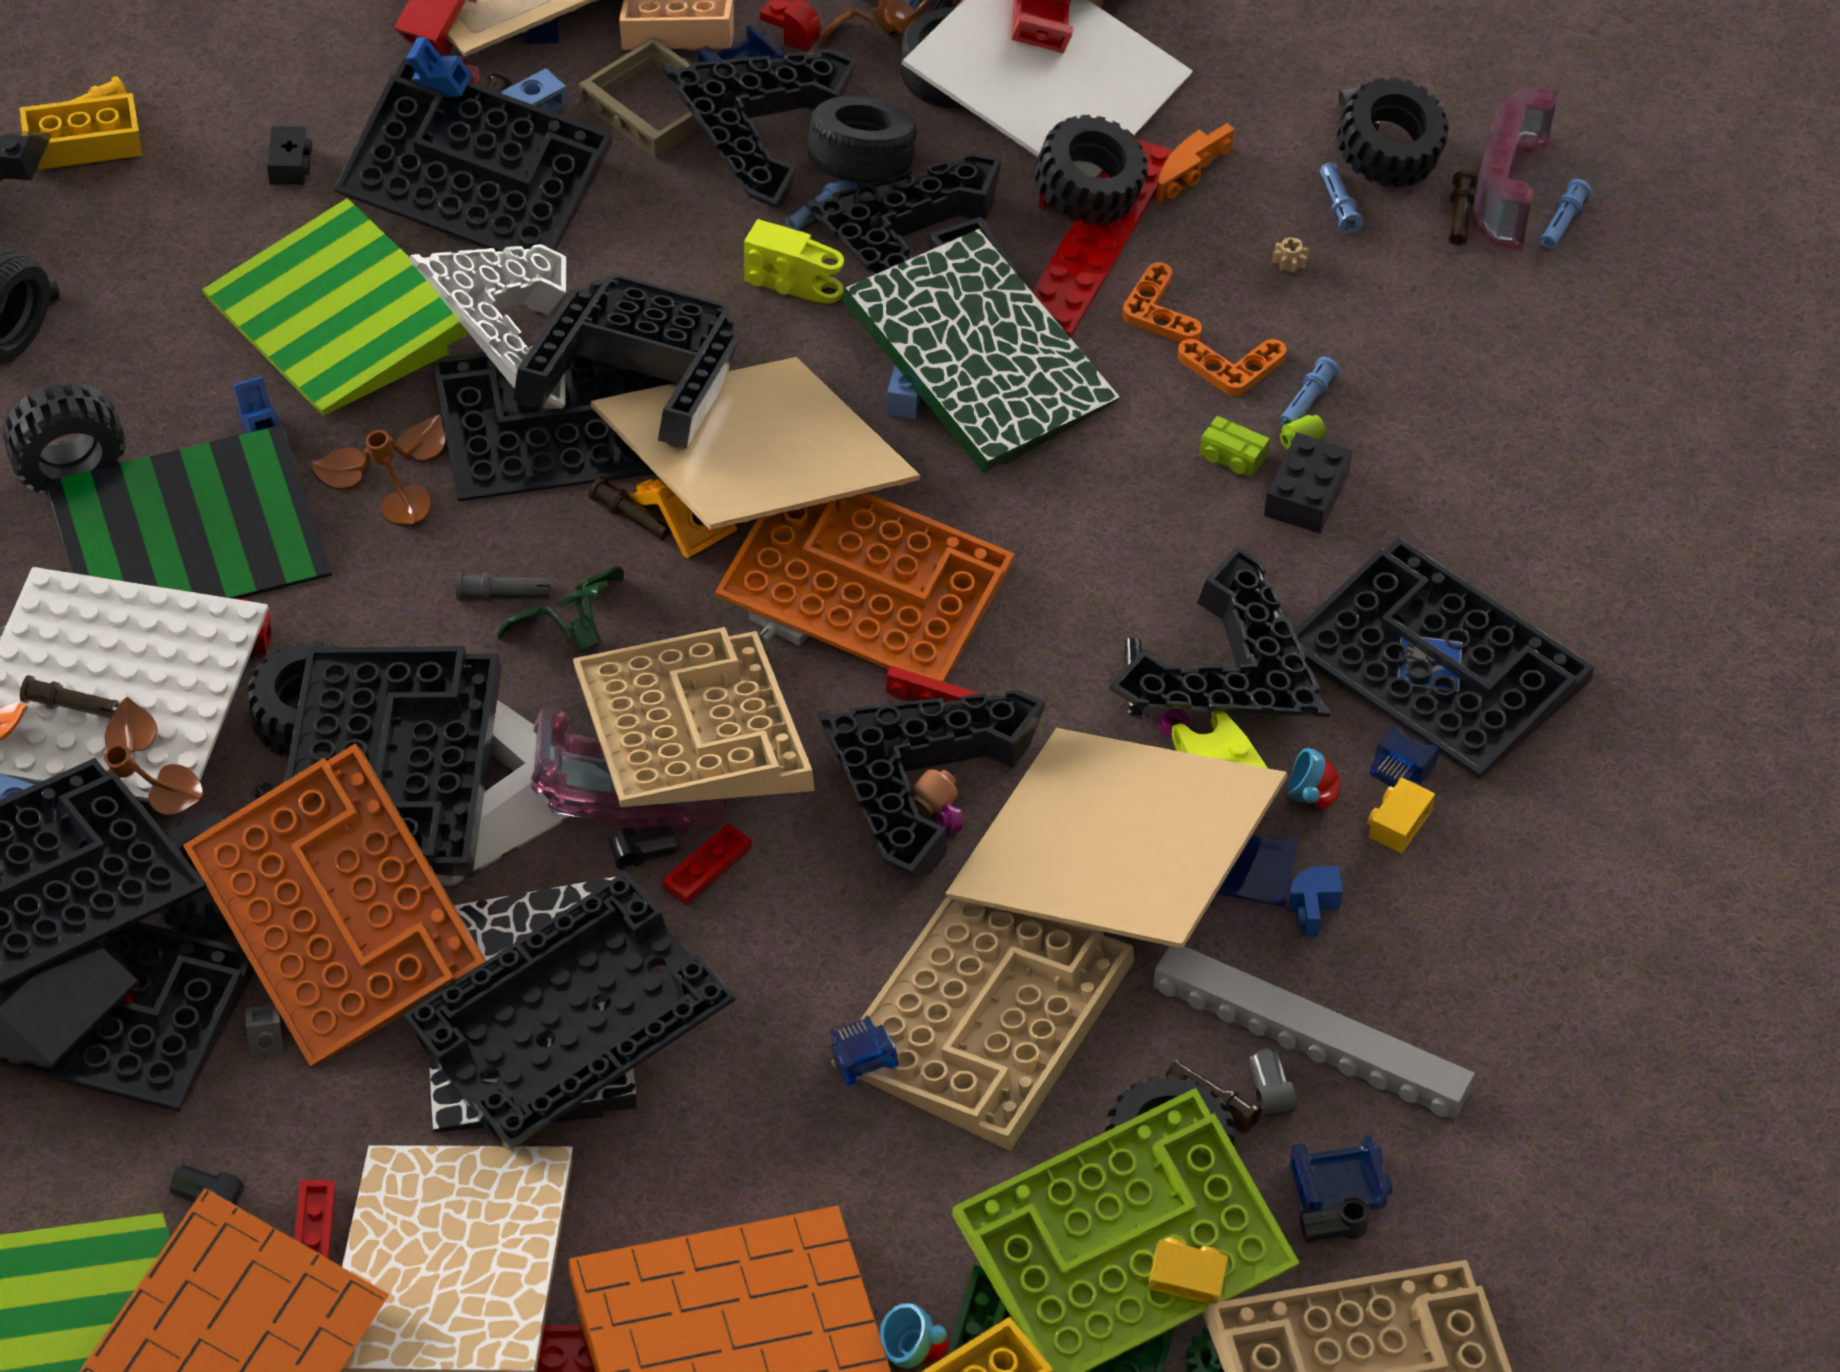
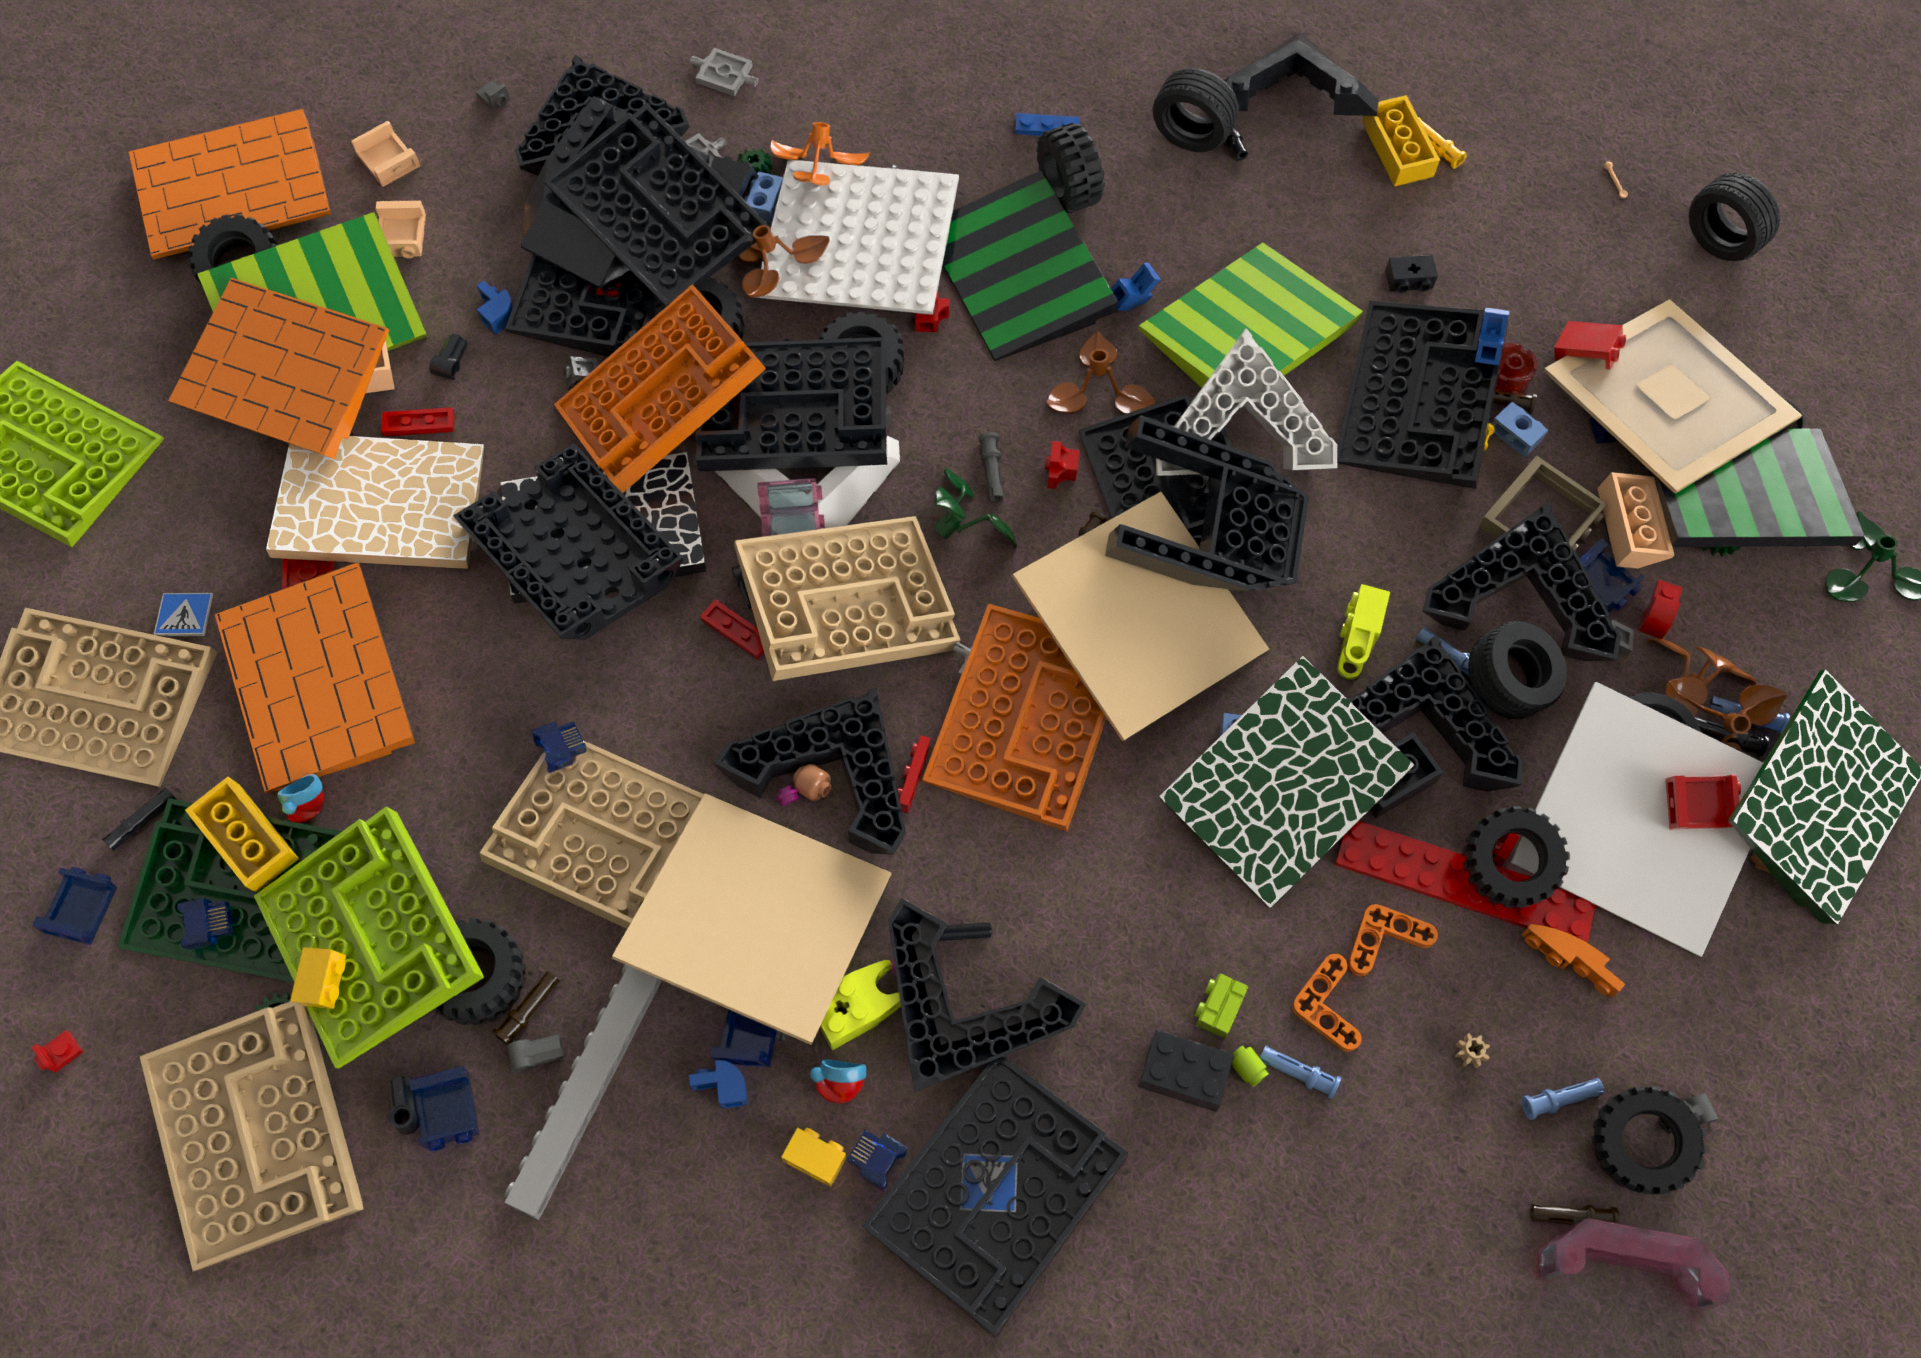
camera: 85 degrees right, 15 degrees up
(55, 696) = (835, 201): dark brown pin -> none
(130, 1123) = (496, 310): none -> blue brick
(514, 515) = (1061, 464): none -> red brick
(1569, 206) = (1603, 1326): medium blue pin -> none

